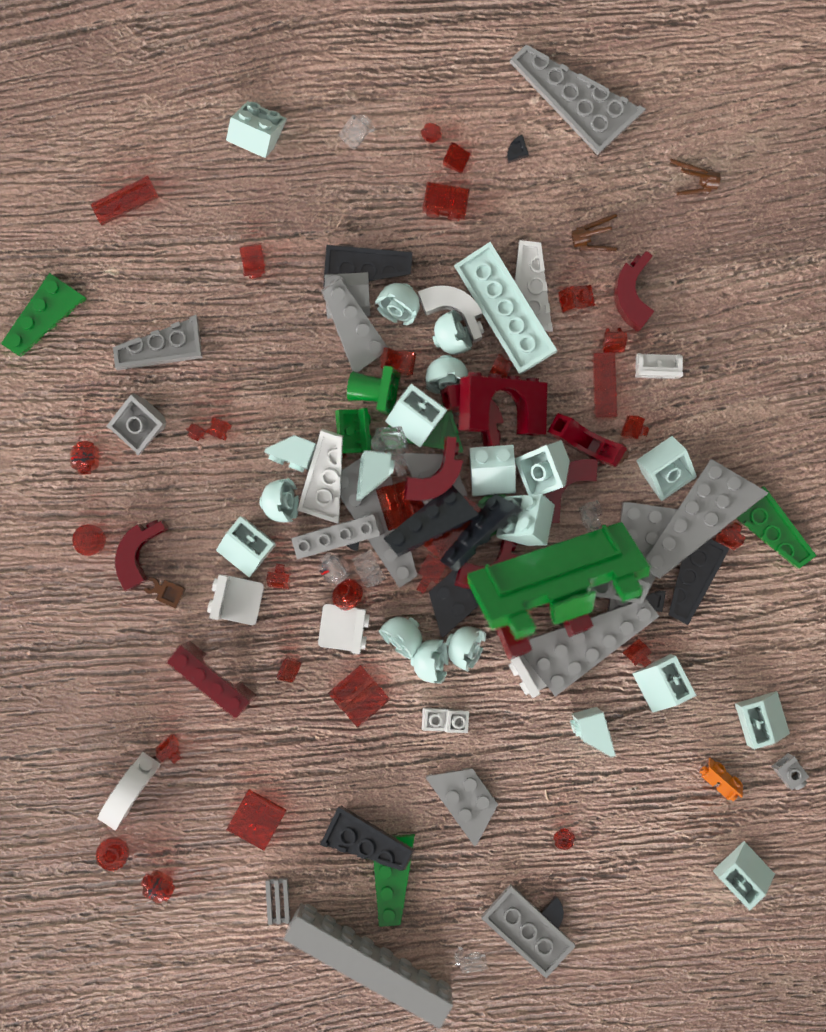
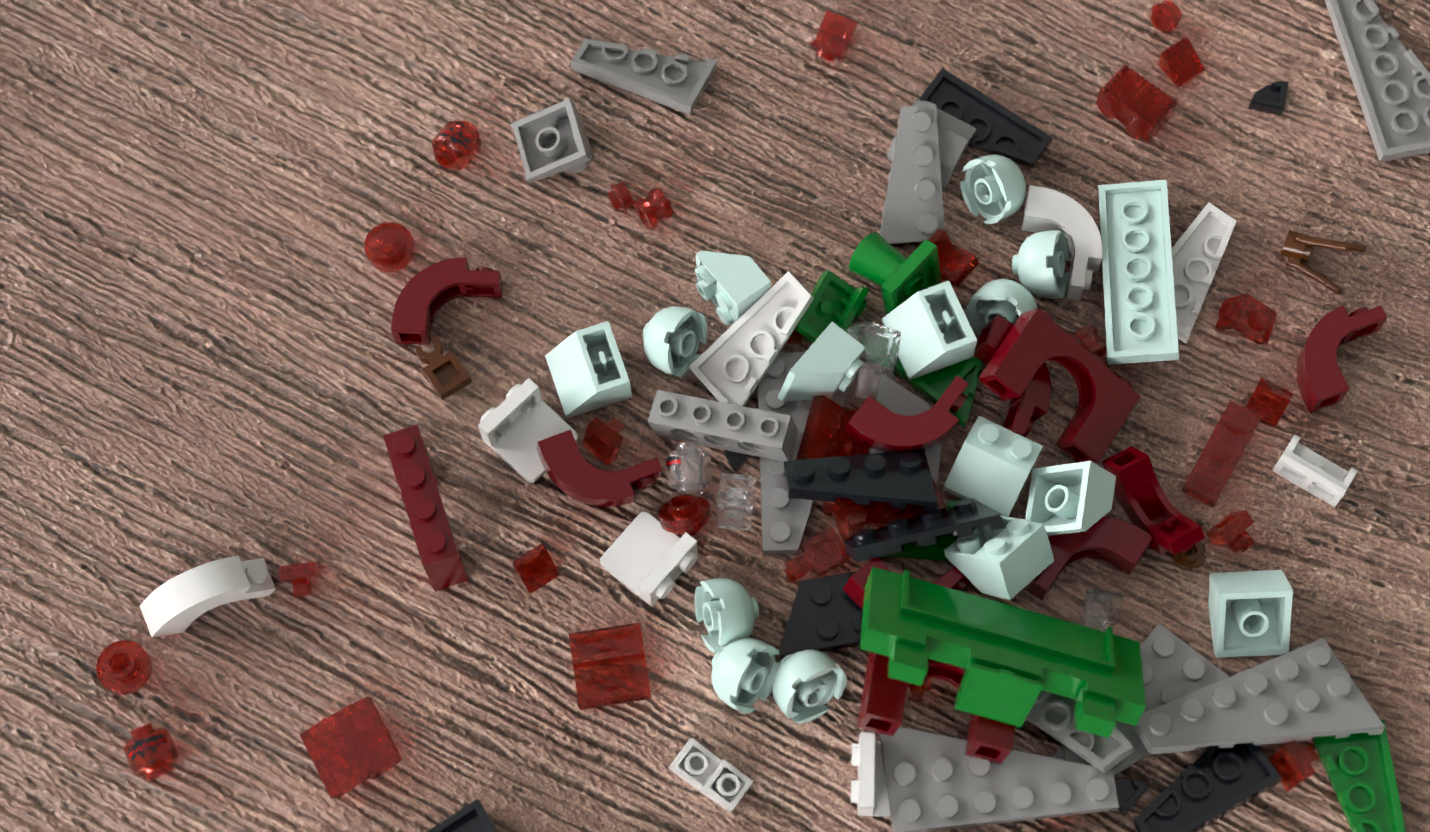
camera: 30 degrees right, 20 degrees down
(285, 610) = (587, 483): none -> dark red arch

